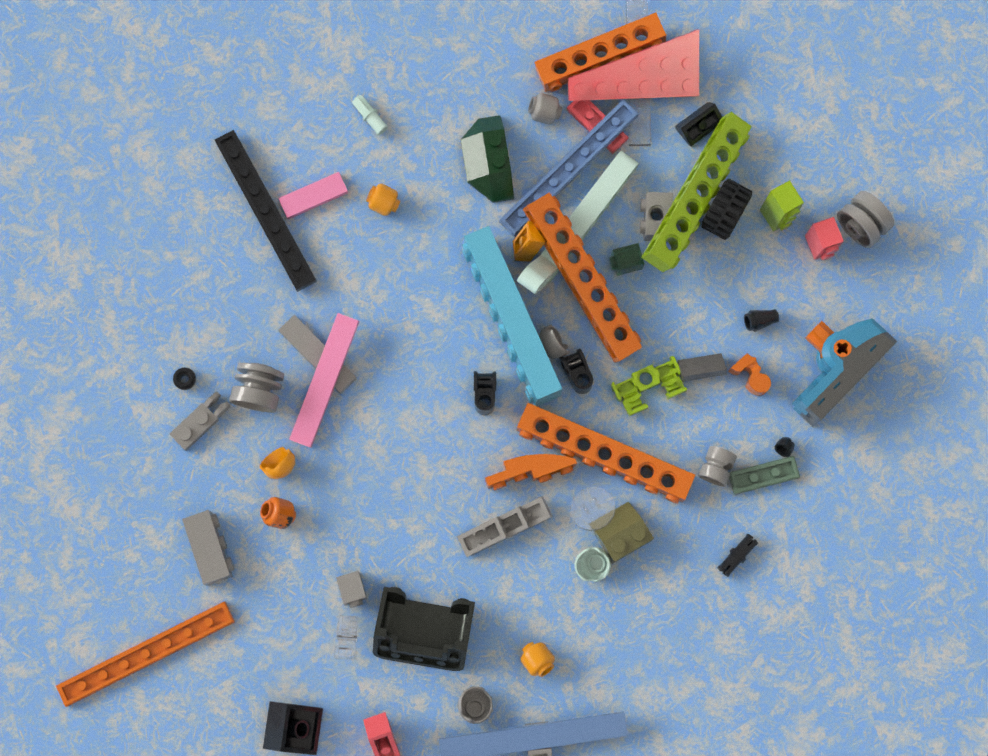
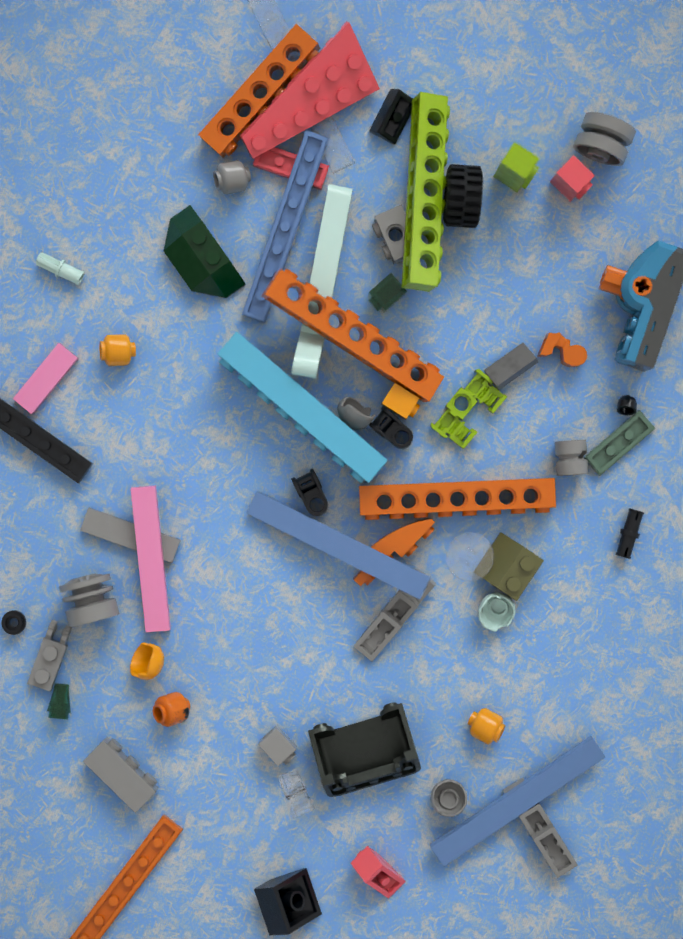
camera: 20 degrees left, 10 degrees up
(187, 463) = (60, 702): none -> clear green cone
(487, 443) = (339, 545): none -> medium blue tile
(527, 243) = (281, 326): light orange slope -> none
(596, 352) = (401, 402): none -> light orange brick
(759, 319) = (545, 290): black cone -> none

